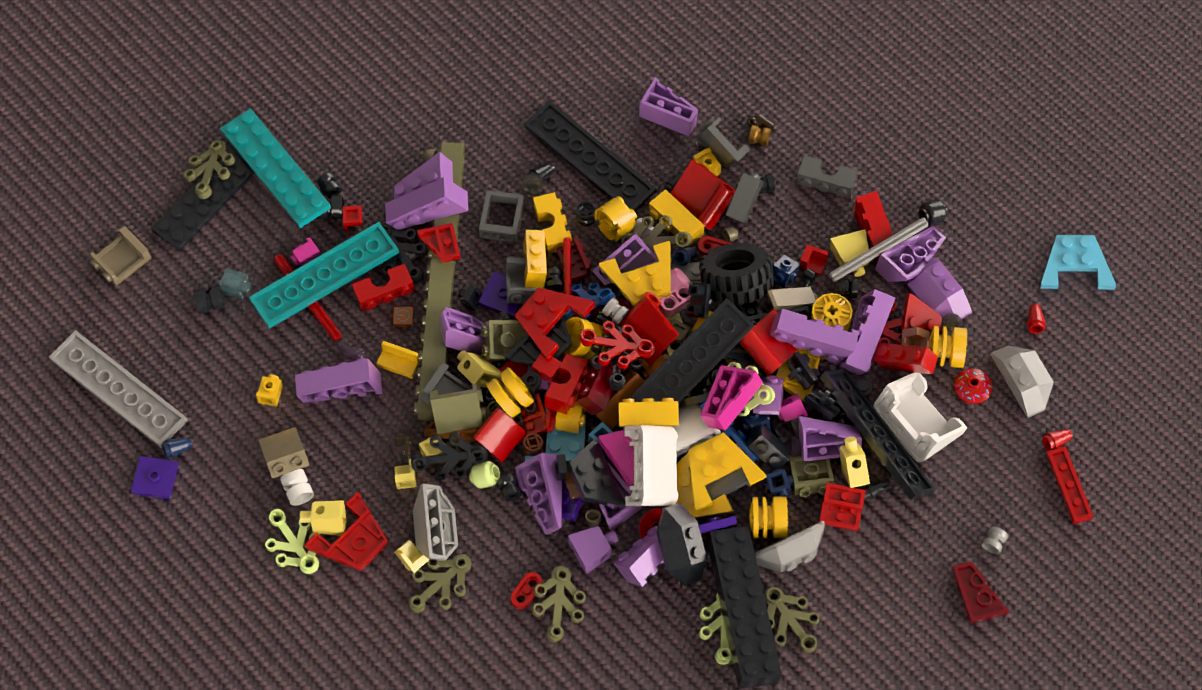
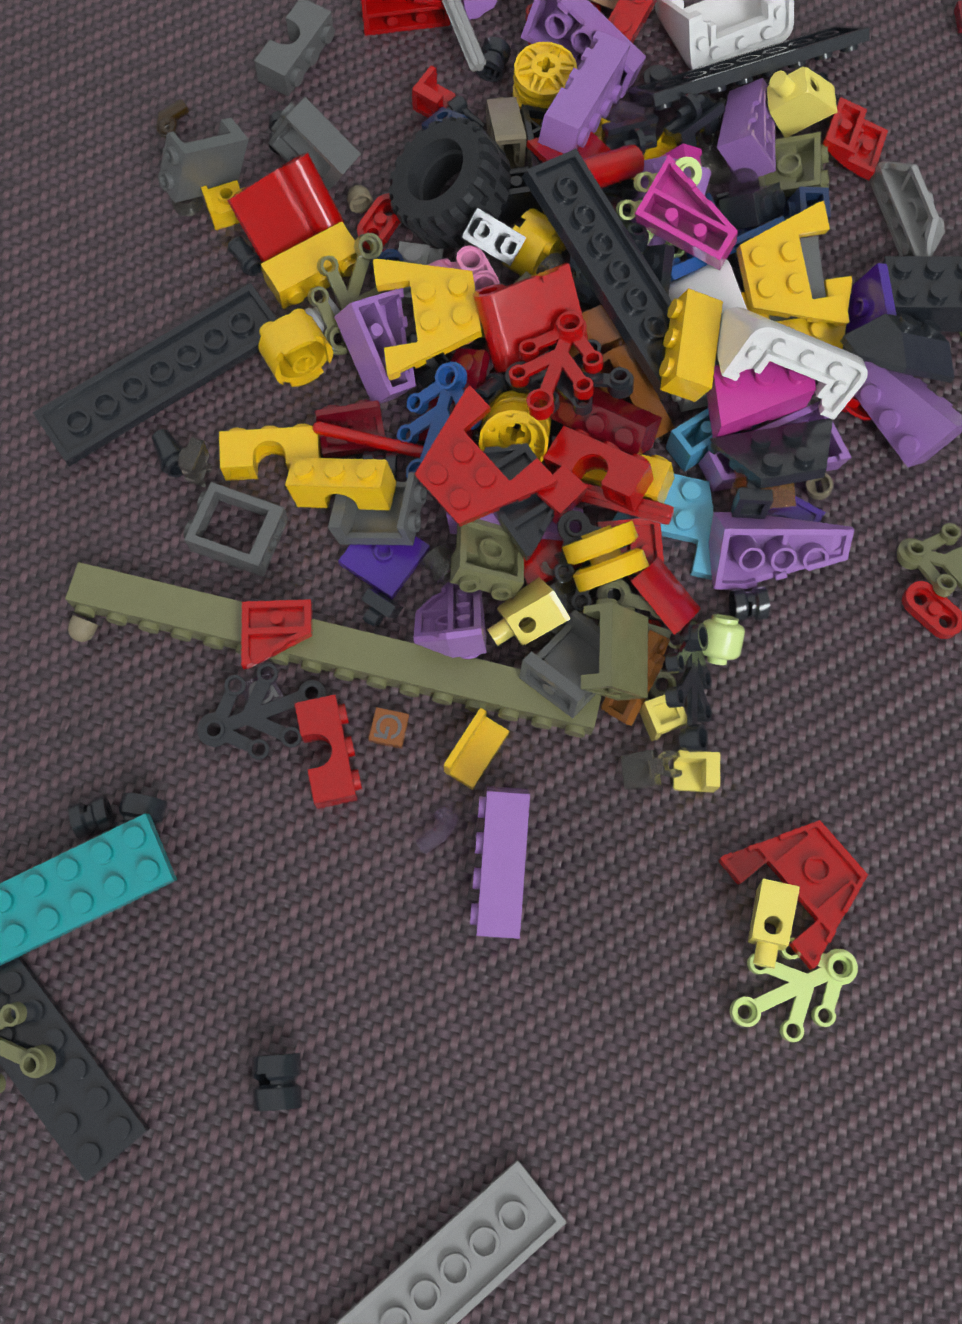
camera: 85 degrees left, 10 degrees up
(120, 257) = (135, 1257): dark tan panel -> none
(154, 477) = (625, 1241): dark purple plate -> none
(174, 447) = (571, 1188): dark blue cone -> none
(235, 283) = (252, 1025): clear light blue brick -> none
(271, 395) = (503, 993): yellow brick -> none
(284, 452) = (633, 978): dark tan panel -> none
(297, 487) = (696, 965): white wheel -> none
(305, 253) = (225, 881): dark pink brick -> none
(315, 308) = (310, 893): red axle -> none
(324, 275) = (282, 855): teal plate -> none
(352, 216) = (173, 782): red panel -> none
(410, 556) = (857, 783): light yellow panel -> none
(427, 204) = (192, 642): medium lavender wedge -> none
(430, 171) = (146, 637): medium lavender wedge -> none
(434, 523) = (809, 737): light grey wedge -> none
(441, 580) = (900, 741): olive plant -> none
(534, 448) = (676, 559): copper wheel -> none
(583, 210) = (264, 389): black wheel -> none
(592, 547) = (872, 496): medium lavender torso -> none
(615, 311) = (486, 363): light grey wheel -> none
(667, 109) = (110, 235): medium lavender wedge -> none
(759, 135) = (197, 118): pearl gold wheel -> none
(769, 517) = (865, 228): yellow wheel -> none
(849, 247) = (430, 41): light yellow torso -> none

